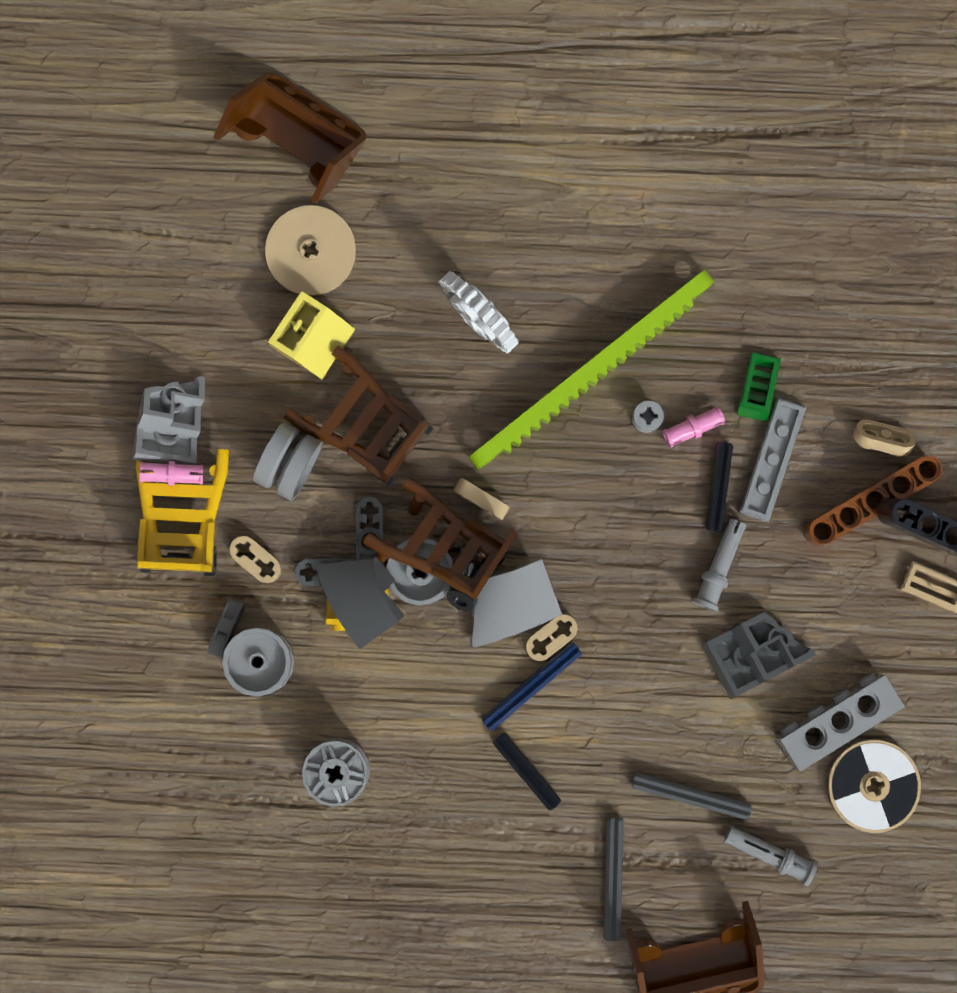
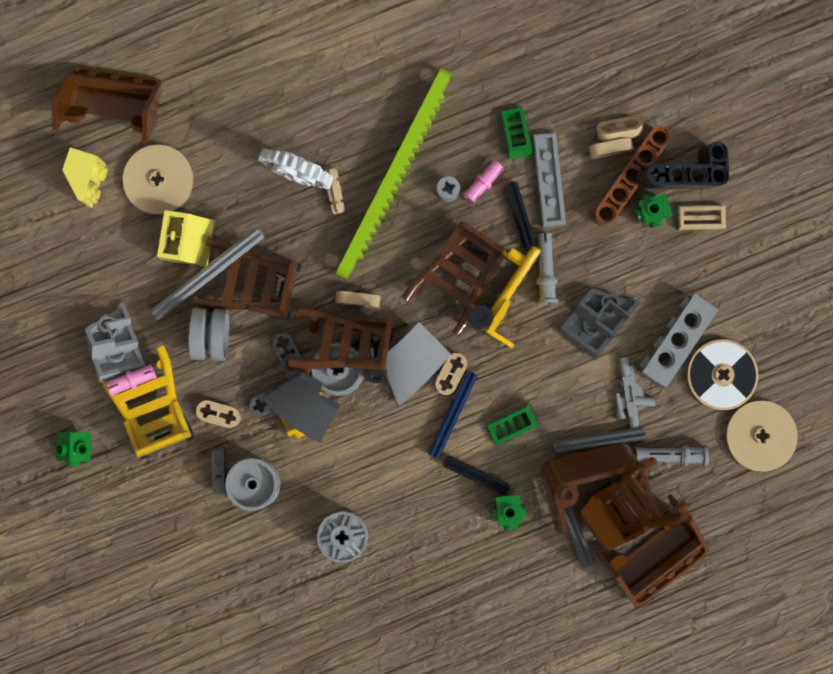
camera: 25 degrees left, 0 degrees up
(67, 522) = (73, 447): none -> green brick
(226, 207) = (84, 175): none -> light yellow slope
(318, 388) = (208, 273): none -> light grey axle
(511, 361) = (335, 194): none -> tan axle
(546, 820) = (502, 504): none -> green brick
(610, 742) = (516, 432): none -> green slope
(626, 595) = (482, 317): none -> yellow hand
(635, 818) = (566, 472): none -> reddish brown windscreen
(656, 501) = (480, 244): none -> reddish brown hand
(656, 899) = (607, 523): none -> reddish brown hand
(756, 760) = (632, 395): none -> light grey piece
(863, 456) = (611, 148): none -> tan beam
(866, 892) = (748, 449): none -> tan piece
(890, 552) = (658, 204): none -> green brick

